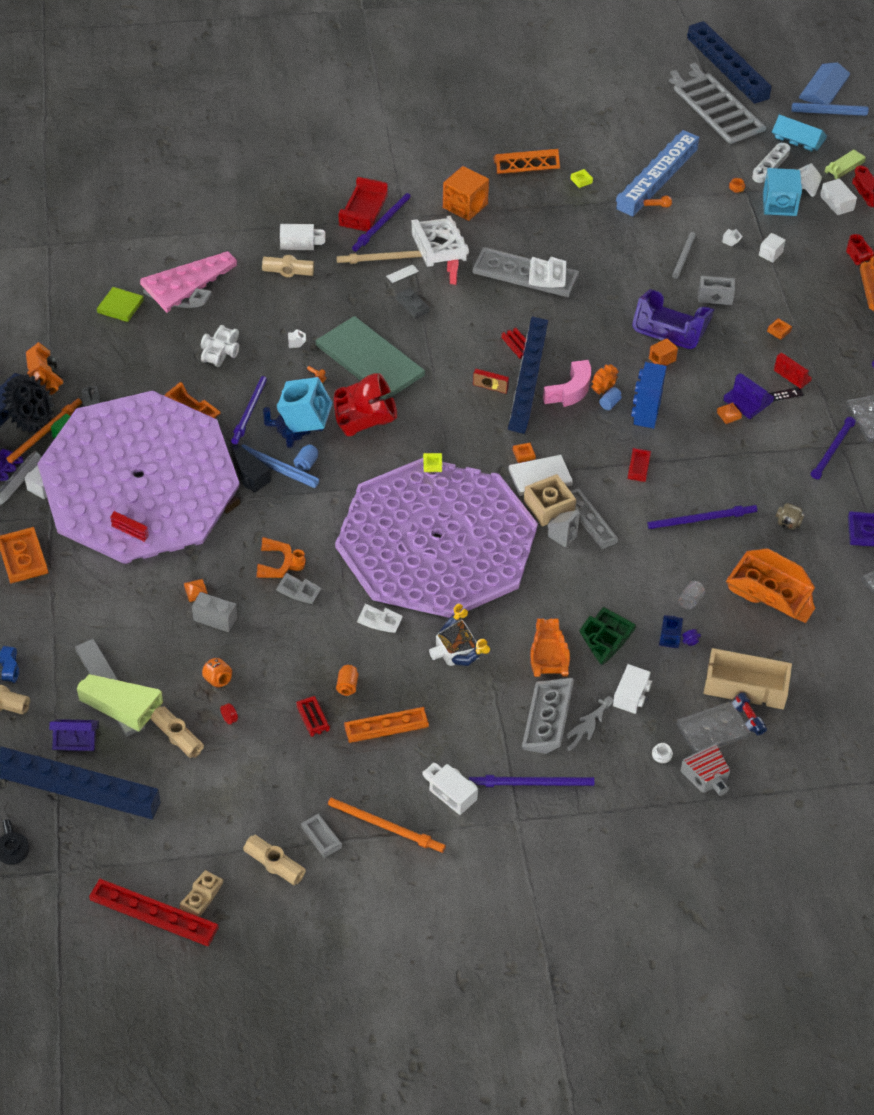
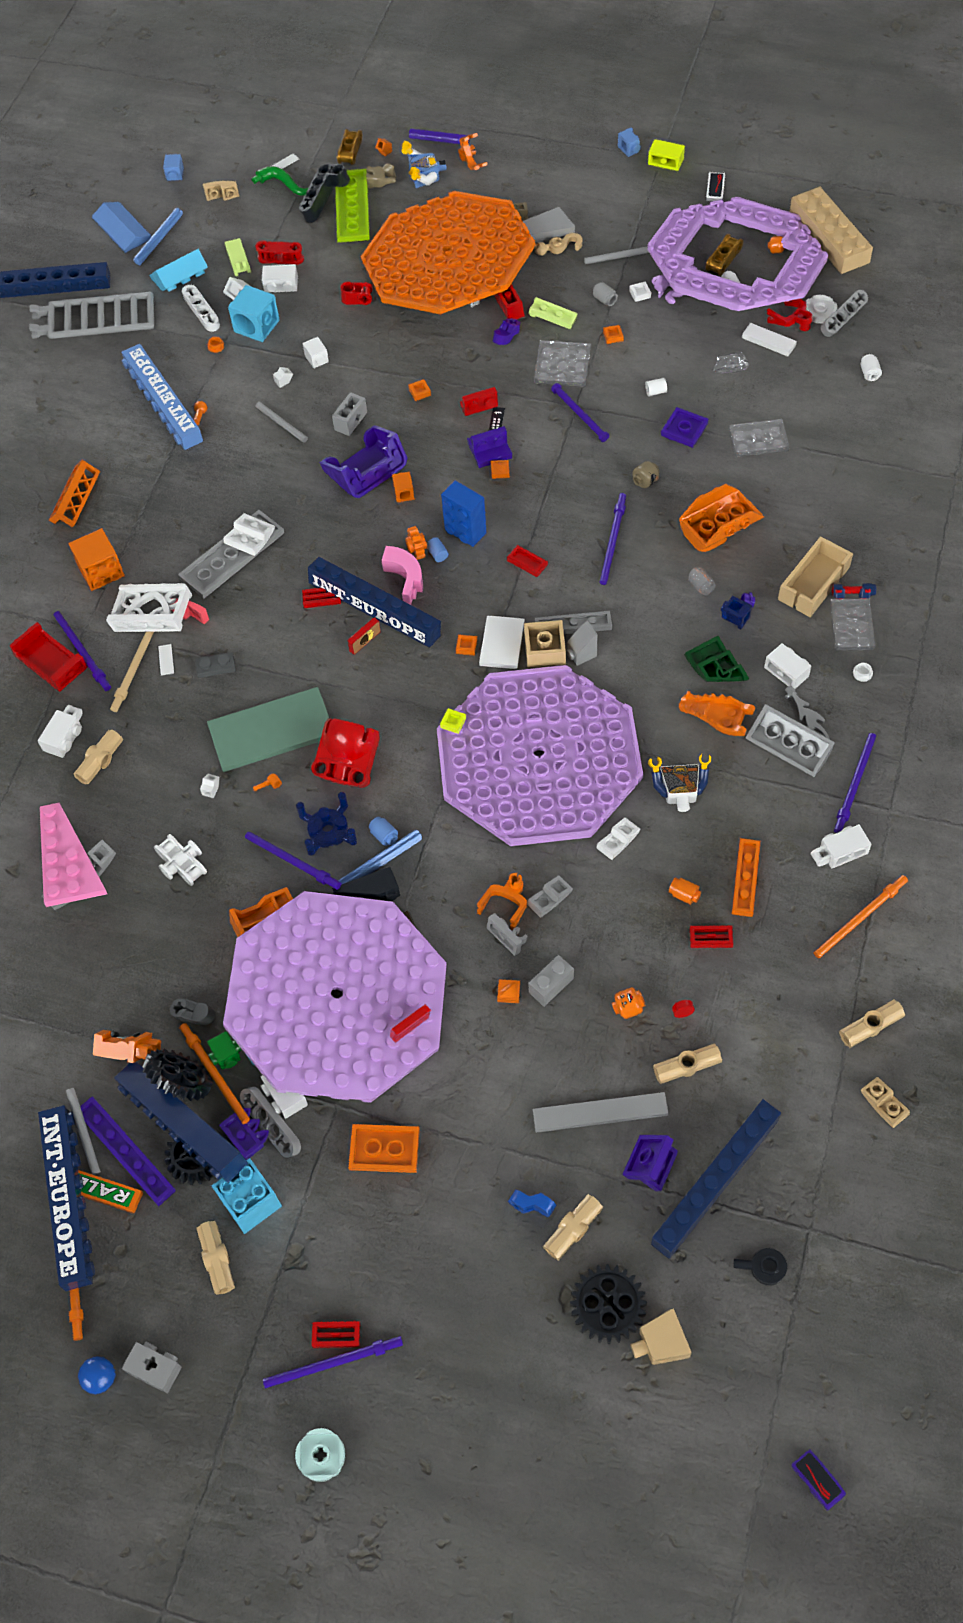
camera: 60 degrees left, 10 degrees up
(120, 304) = (56, 940): lime tile -> none
(120, 700) = (634, 1102): yellowish green slope -> none
(154, 912) = (893, 1152): red plate -> none
(244, 570) = (508, 938): none -> light grey plate
(304, 404) = (318, 791): medium azure brick -> none
(321, 835) = (852, 975): light grey tile -> none
(581, 178) = (129, 459): neon yellow plate -> none
(707, 770) = (896, 645): light grey torso -> none

